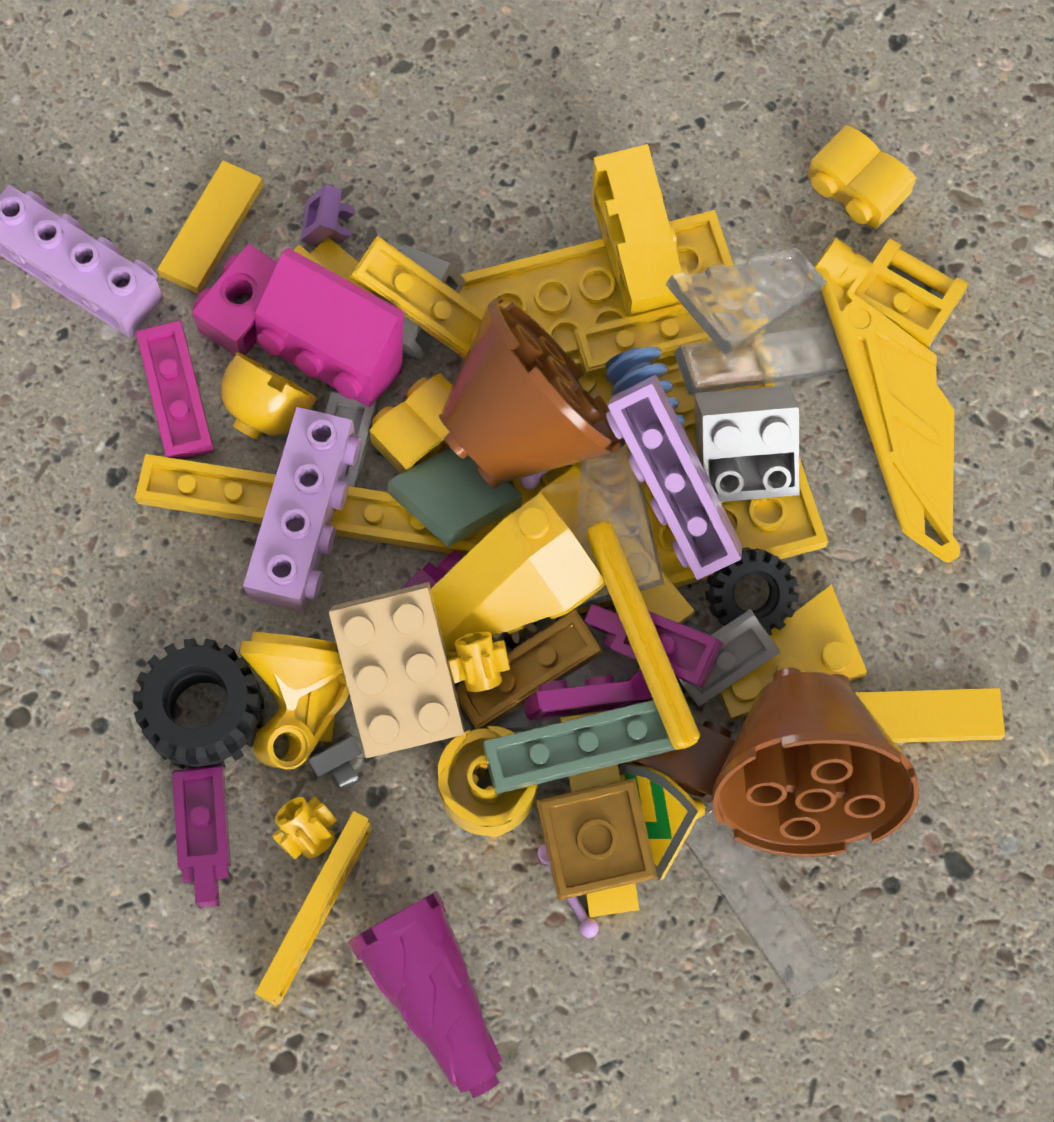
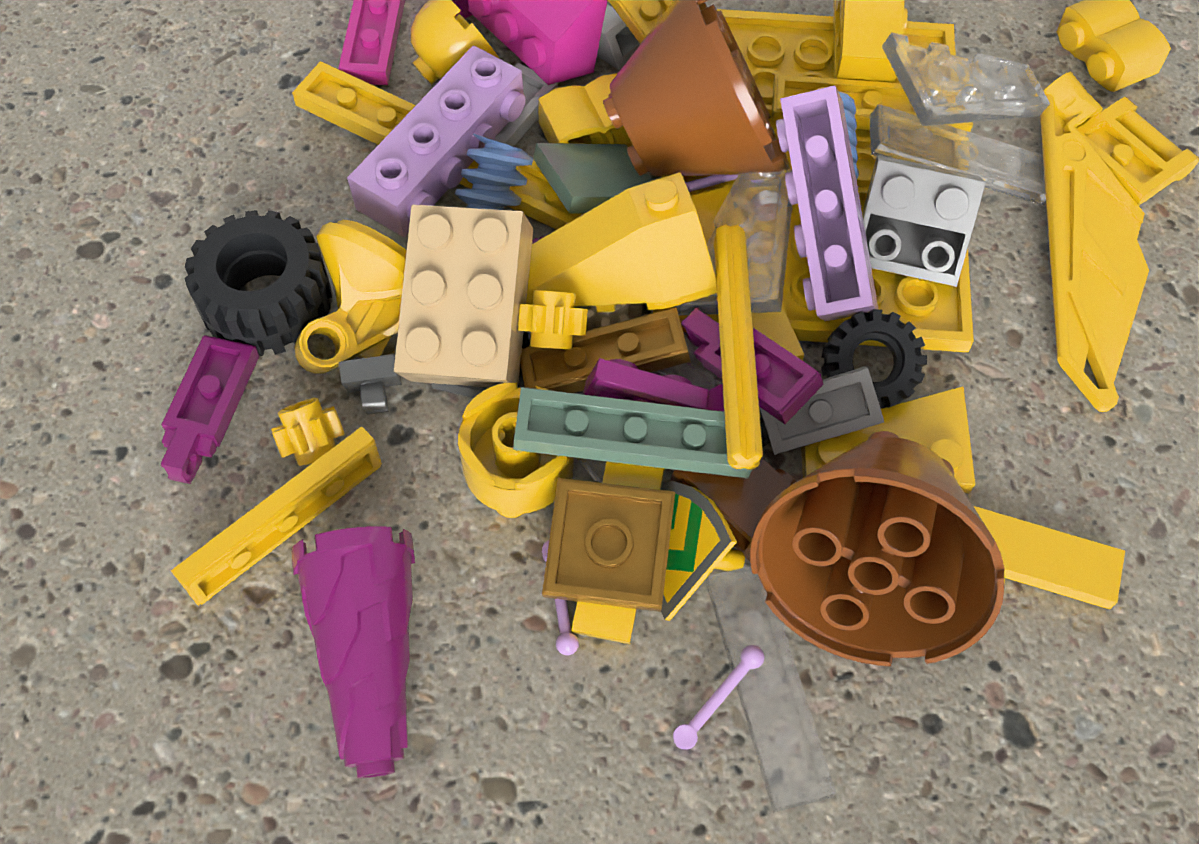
camera: 20 degrees right, 10 degrees down
(371, 547) = (494, 175): none -> medium blue piece
(708, 966) = (686, 734): none -> lavender hinge

